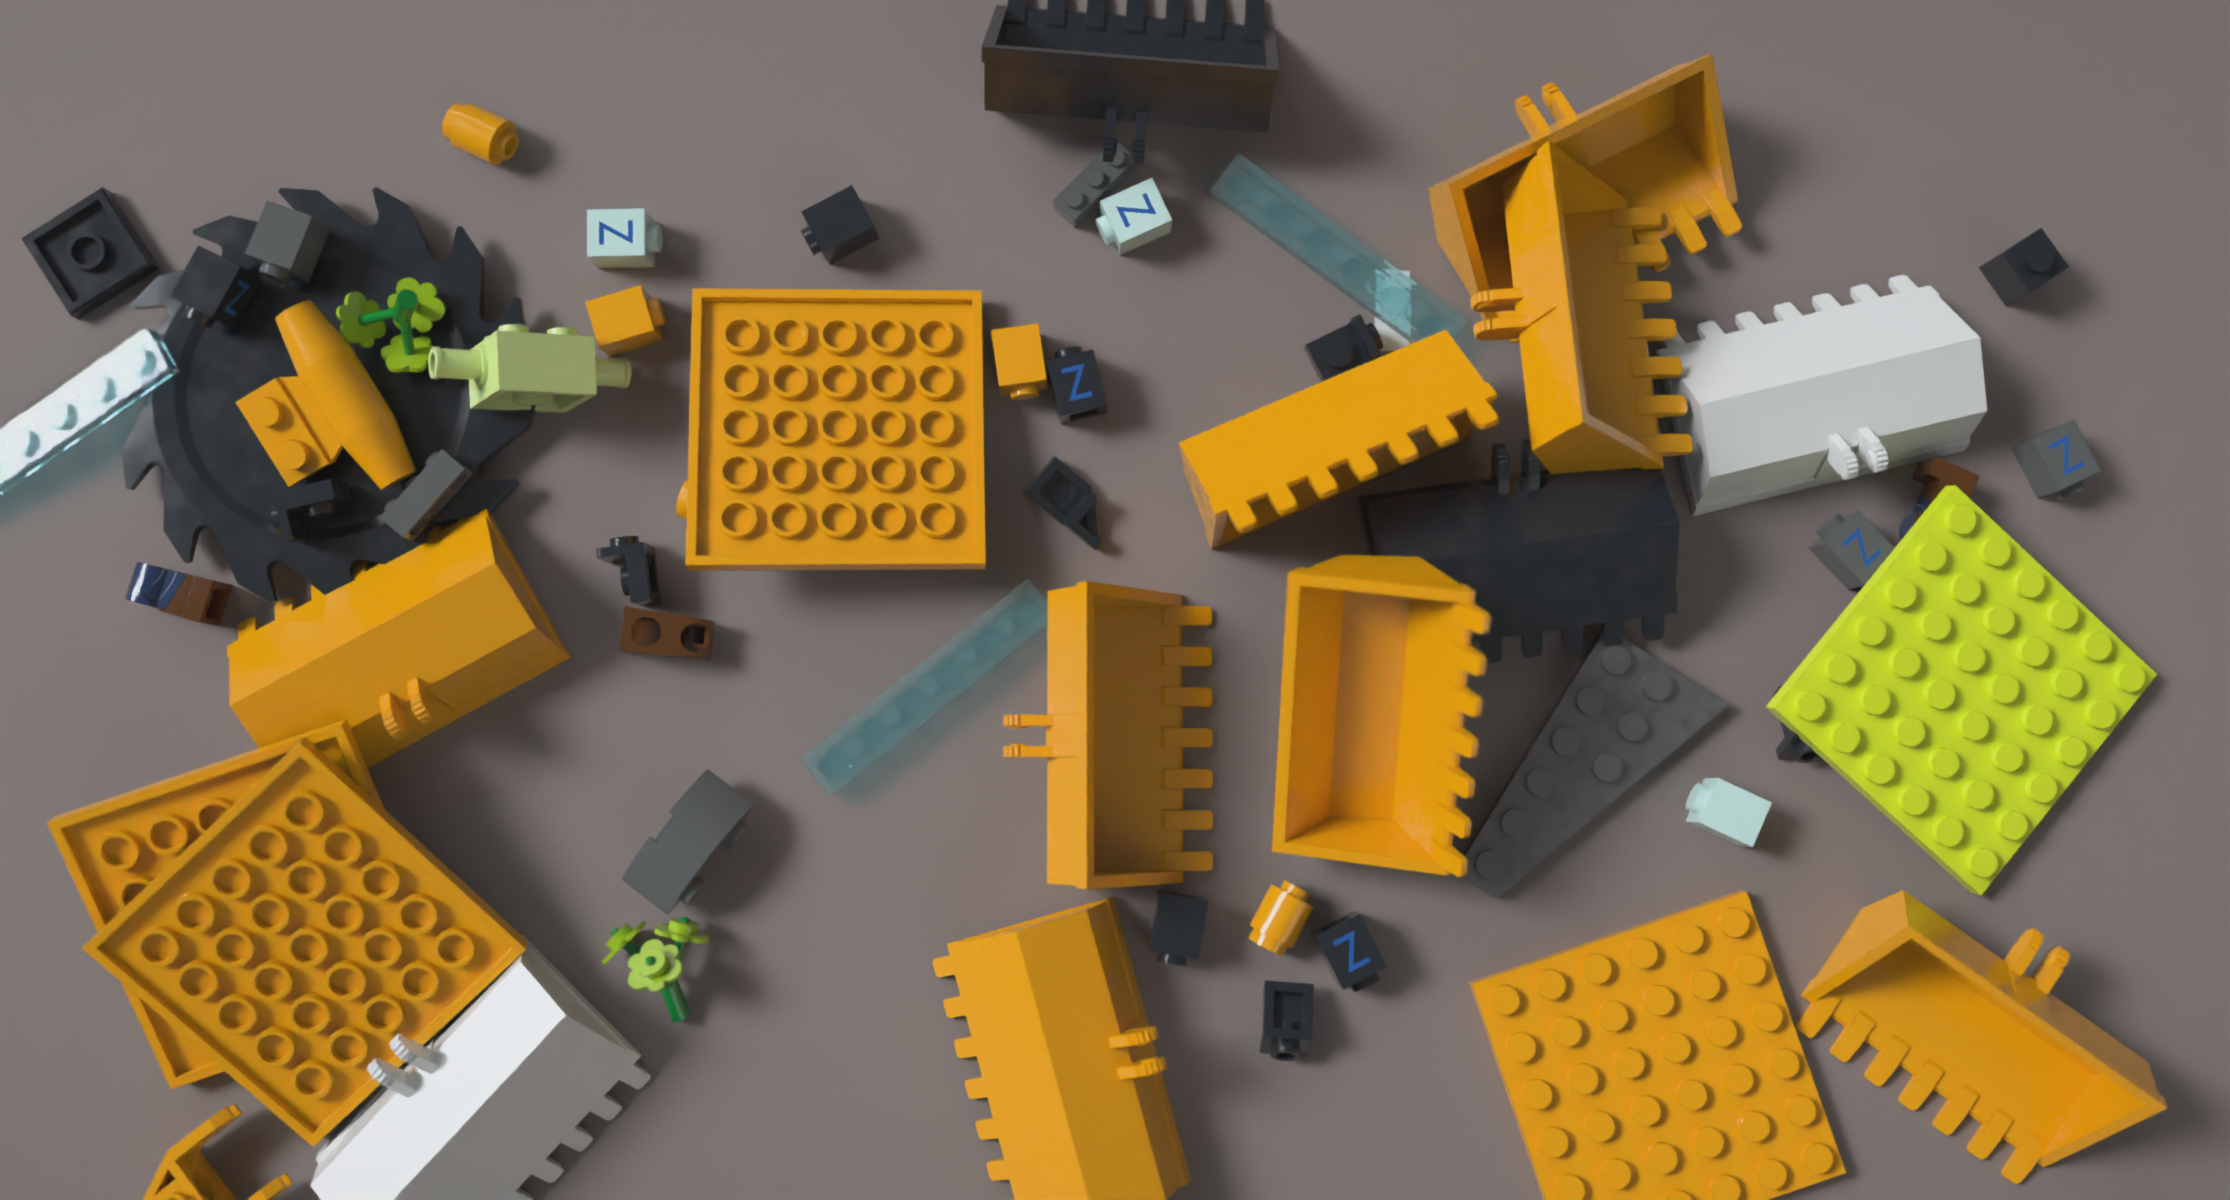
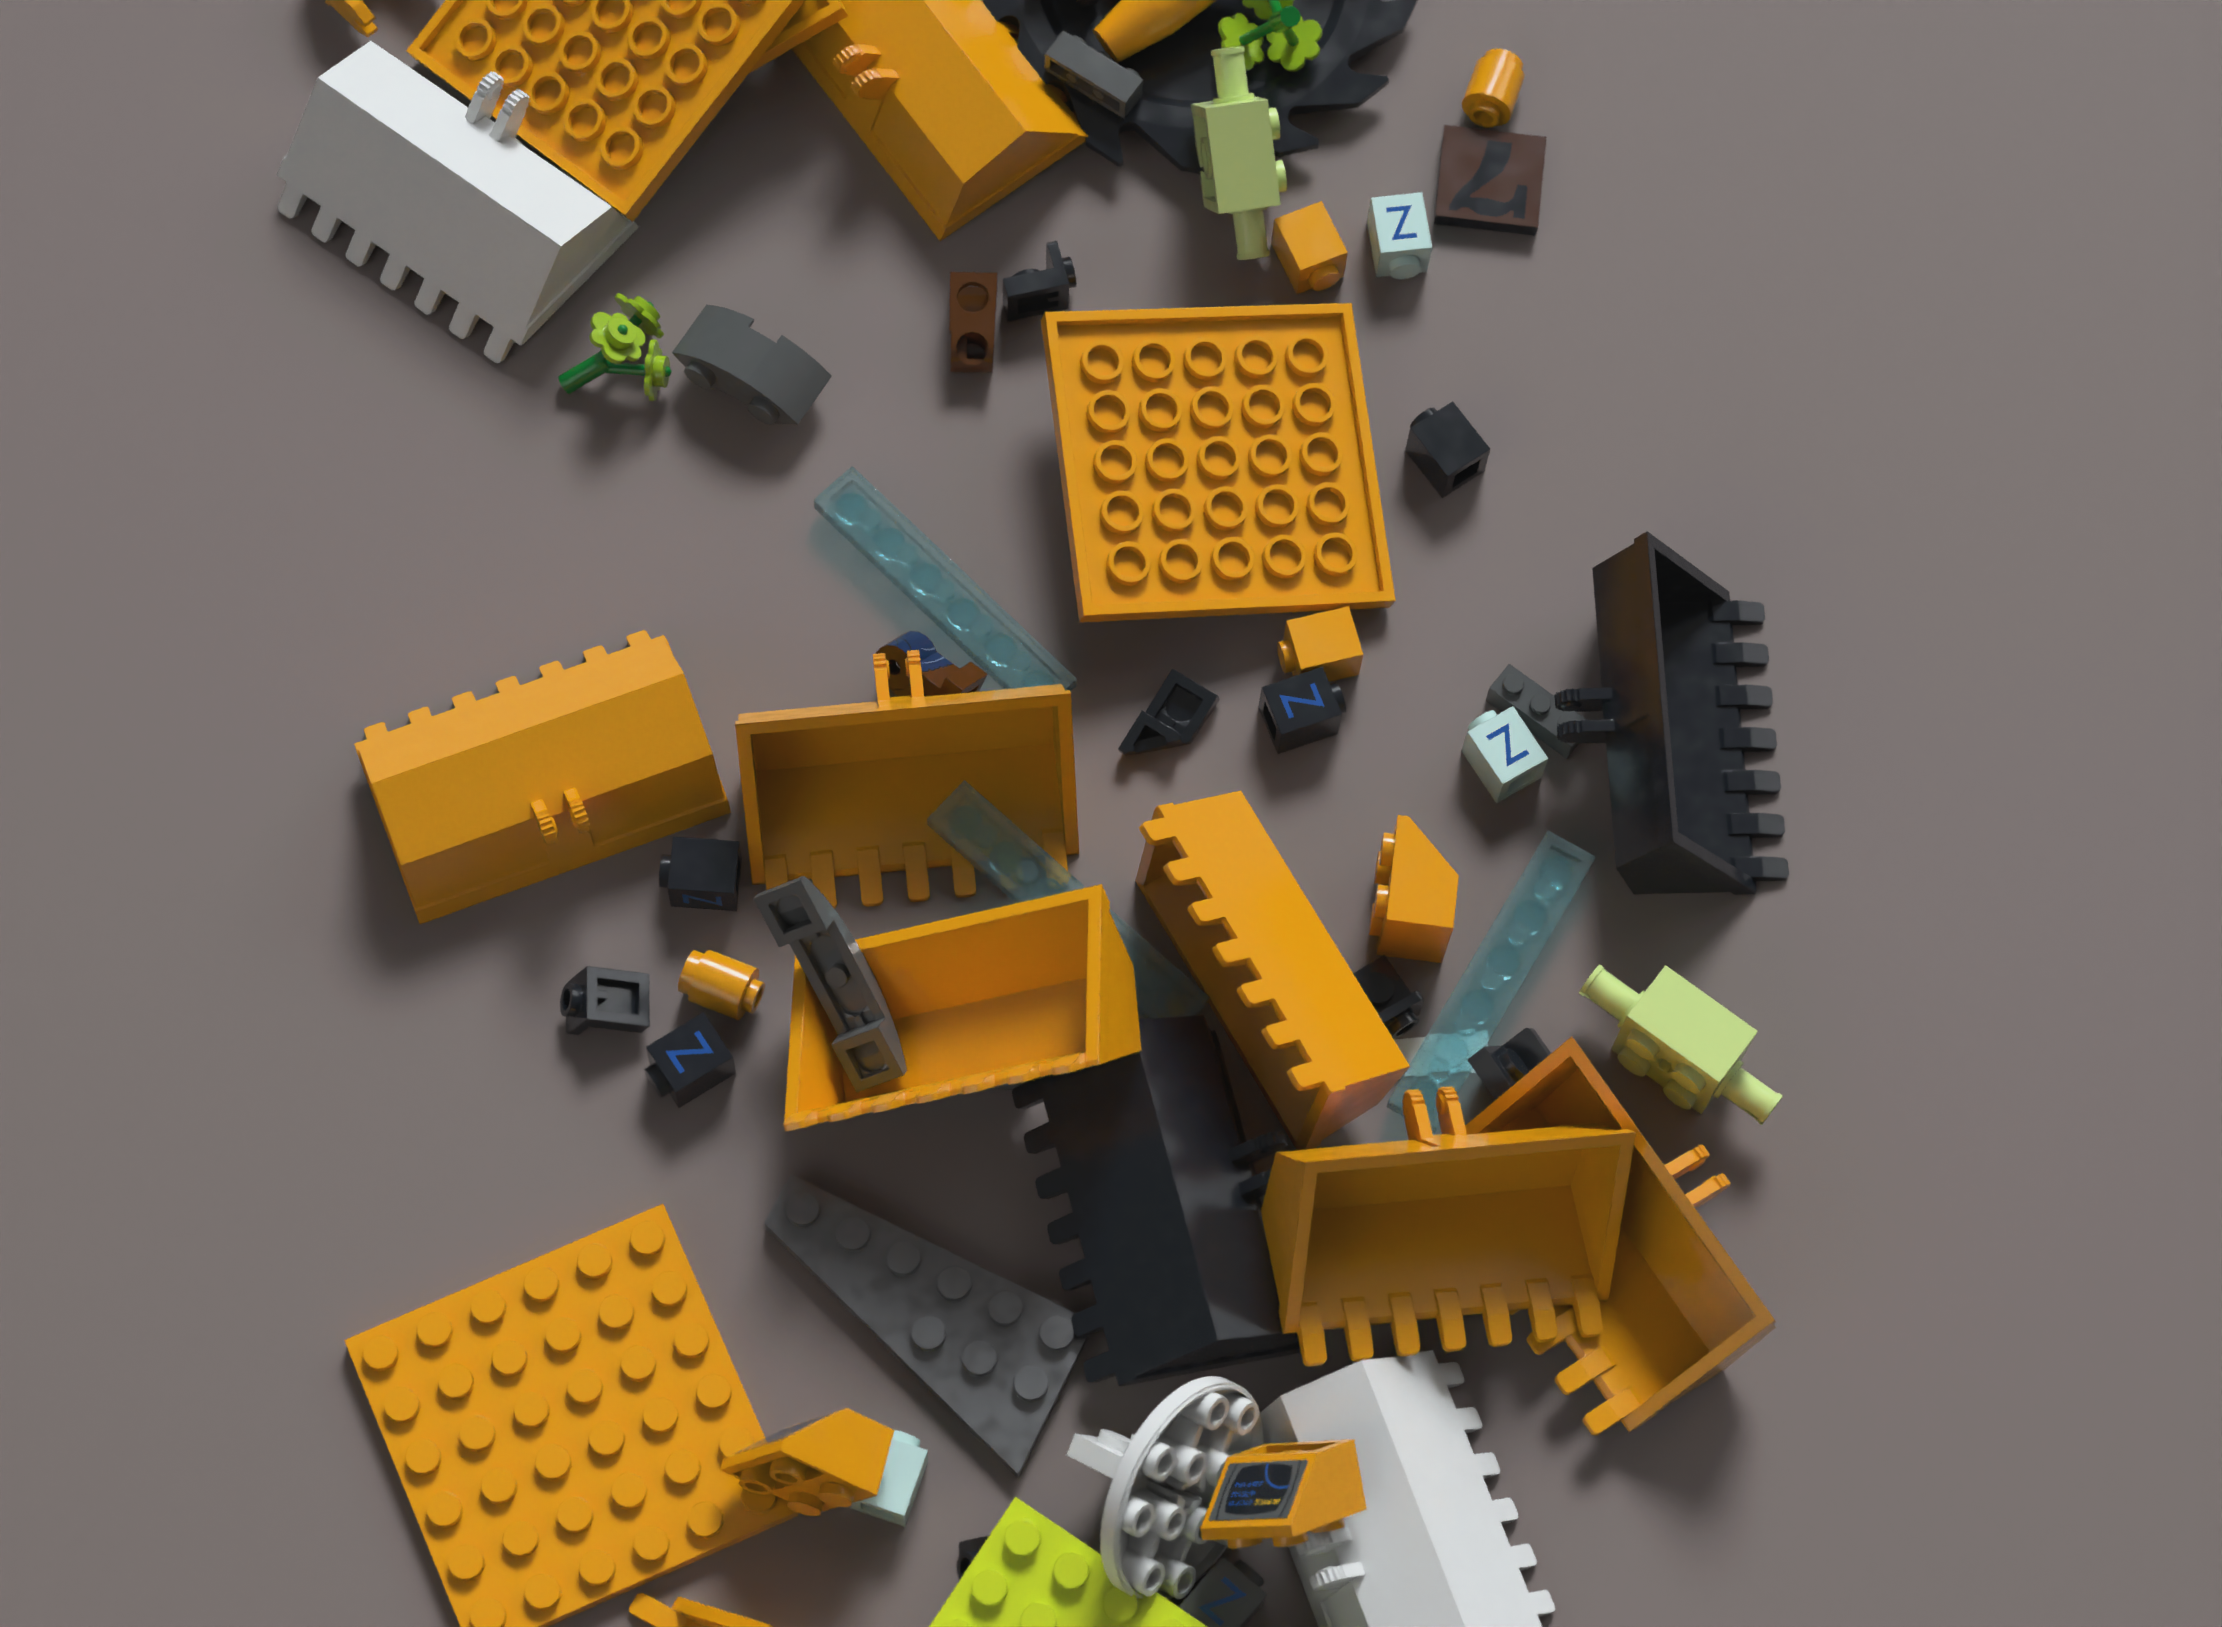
camera: 85 degrees right, 15 degrees down
(571, 151) = (1490, 180): none -> reddish brown tile
(1021, 695) = (938, 673): none -> reddish brown leg
(1239, 612) = (1029, 873): none -> clear light blue plate
(1266, 310) = (1415, 896): none -> light orange slope
(1310, 810) = (841, 979): none -> dark grey slope
(1418, 102) = (1682, 1041): none -> yellowish green brick
(1420, 249) = (1506, 1064): none -> black bracket
(1726, 875) = (816, 1462): none -> light orange slope
(1775, 581) = (1166, 1484): none -> white bracket
(1811, 483) = (1285, 1493): none -> light orange slope

